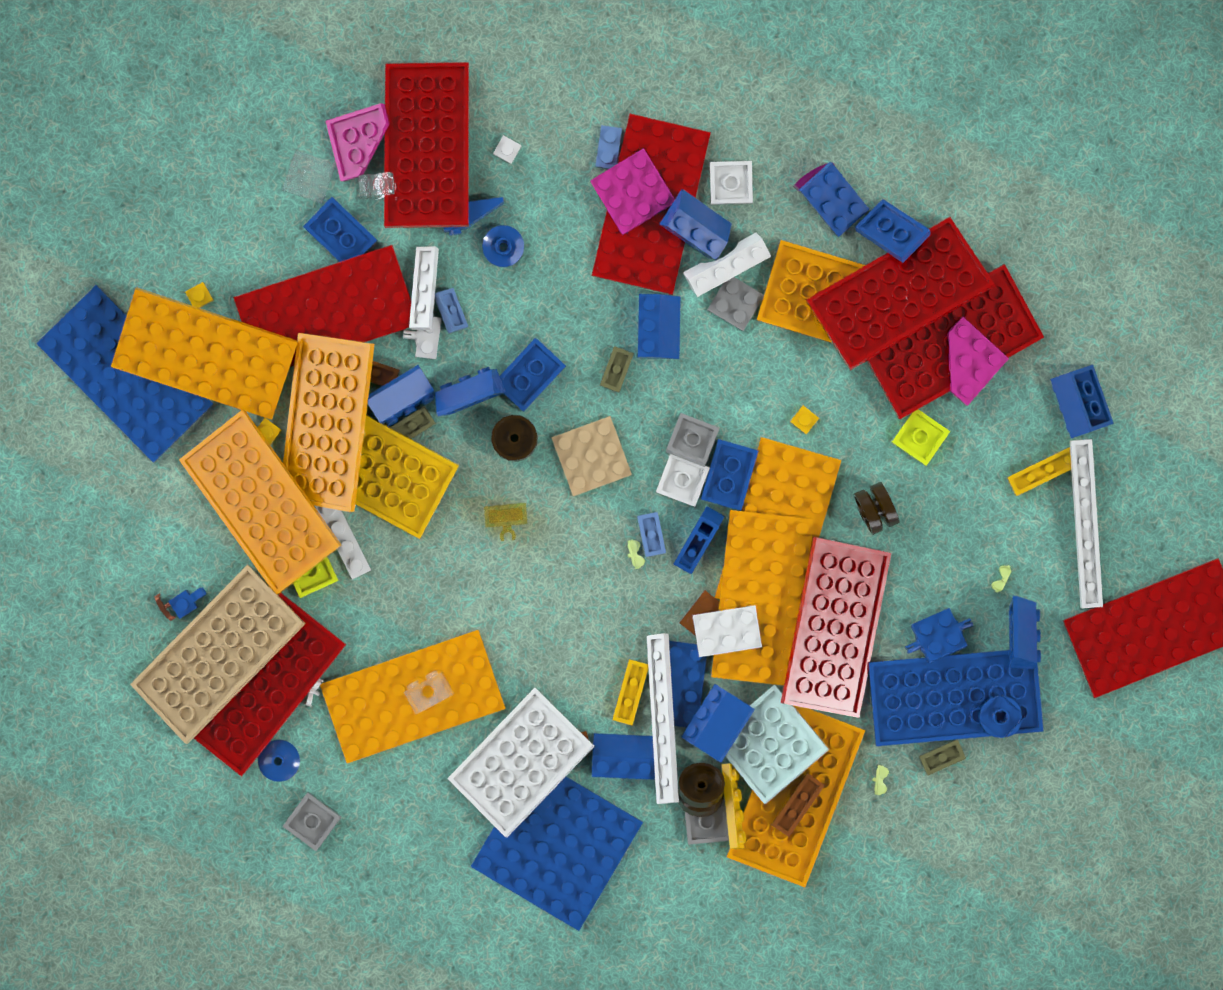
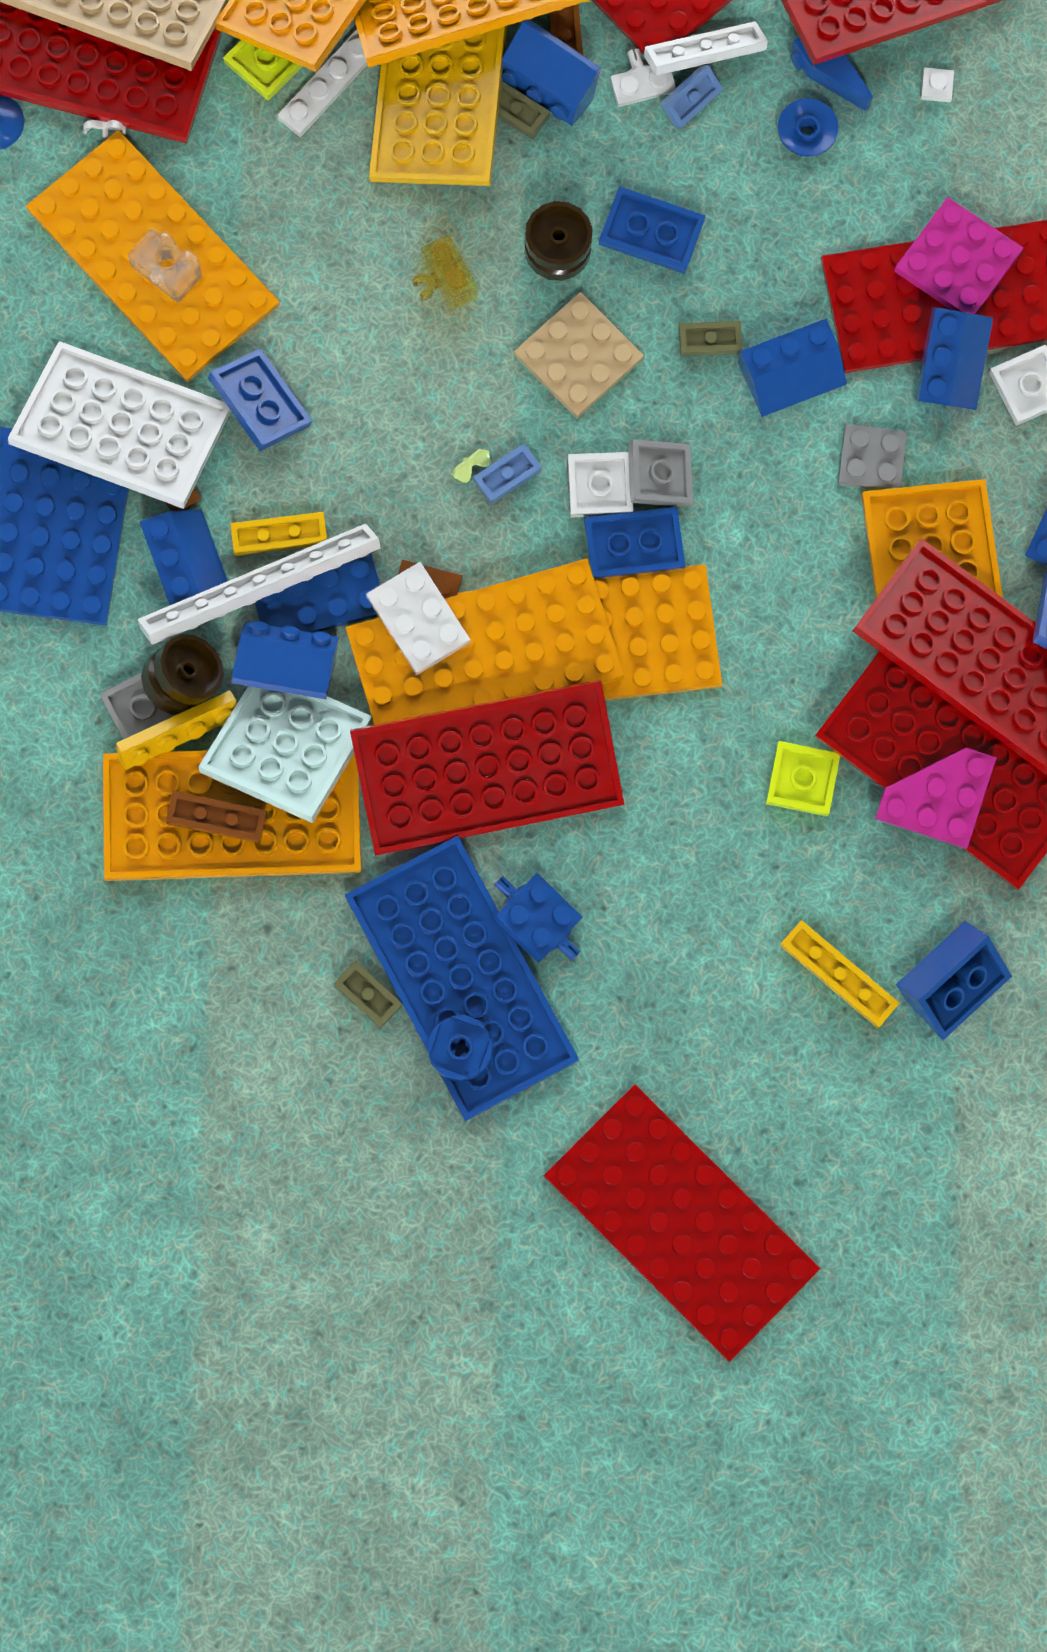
camera: 60 degrees right, 10 degrees down
(468, 392) = (592, 157): blue slope -> none
(539, 668) = (260, 399): none -> plate
(608, 147) = (1004, 209): medium blue plate -> none
(699, 540) = (529, 538): blue slope -> none
(711, 274) = (918, 421): white arch -> none
(804, 419) = (755, 614): yellow plate -> none
(873, 509) = (673, 750): dark brown wheel -> none
(881, 773) = (289, 926): yellowish green piece -> none
(1005, 572) = (666, 976): yellowish green piece -> none
(1023, 634) = (591, 1028): blue slope -> none
(1086, 523) = (785, 1055): white plate -> none

